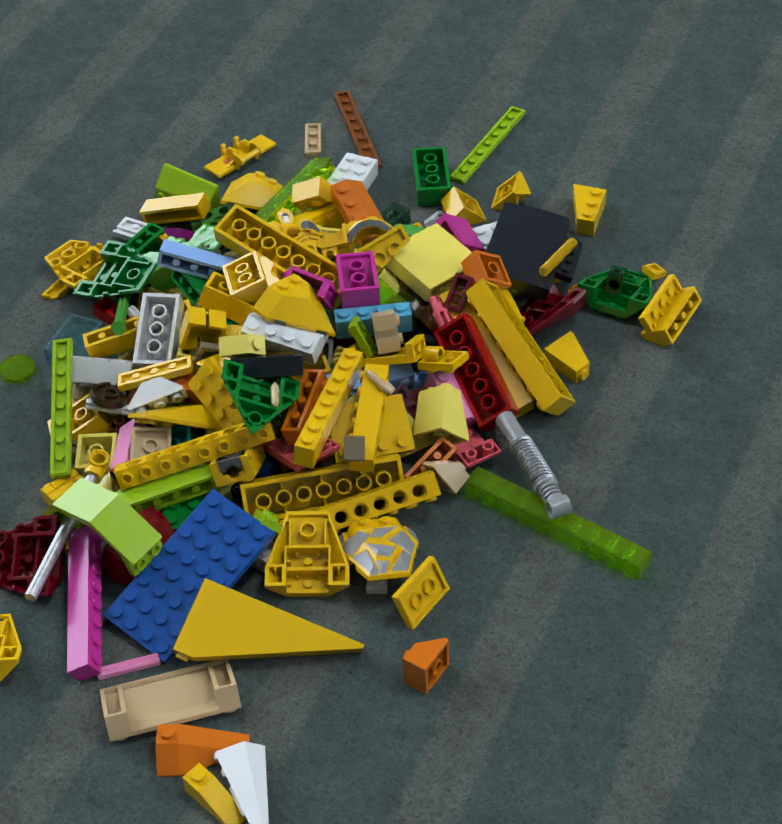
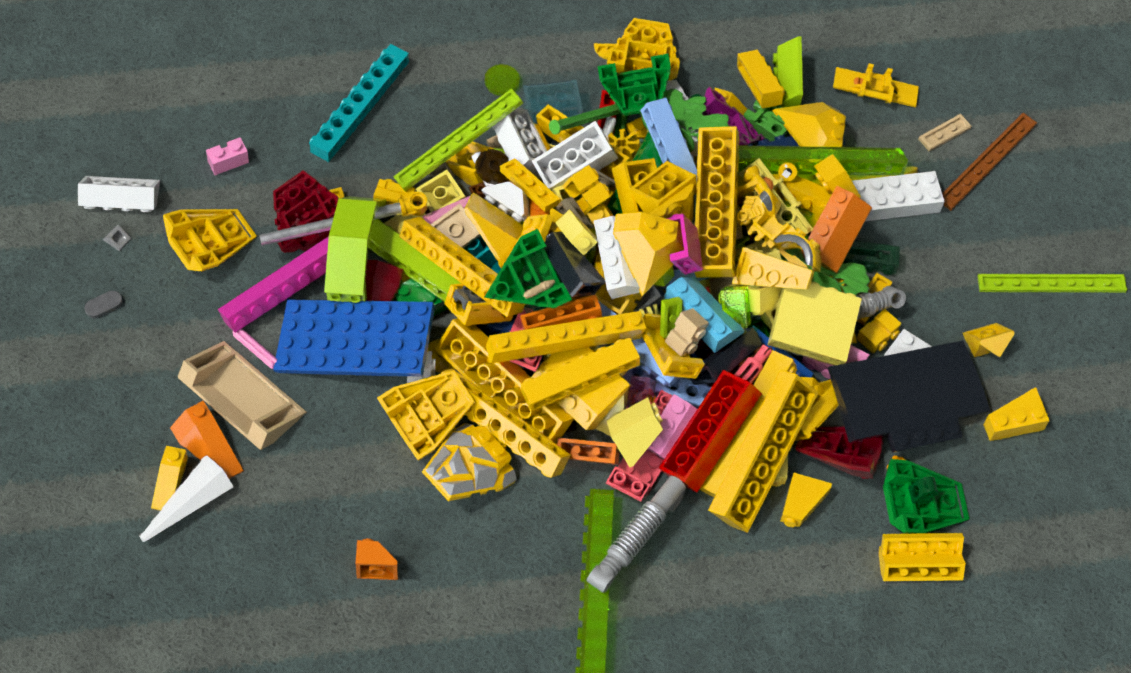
camera: 50 degrees right, 15 degrees up
(128, 228) = (718, 63): white plate -> none
(146, 239) = (700, 79): green slope -> none
(236, 626) = (326, 403): yellow slope -> none
(268, 519) = (437, 361): lime plate -> none
(354, 448) = (528, 383): dark tan slope -> none
(358, 279) = (723, 274): dark pink slope -> none
(385, 386) = (612, 364): tan piece -> none
(420, 592) = (446, 518): yellow tile -> none
(424, 315) = (732, 351): dark brown tile -> none
(430, 175) = (961, 259): green brick -> none
(437, 359) = (691, 395): yellow plate -> none
(449, 474) = (584, 470): tan slope -> none
(455, 284) = (788, 356): dark red slope -> none
(462, 230) = (880, 328): dark pink panel -> none
(463, 206) = (938, 309): yellow slope -> none
(486, 266) = (827, 374): orange slope -> none
(557, 257) = (888, 423): yellow piece -> none
(653, 271) = (975, 518): yellow tile -> none

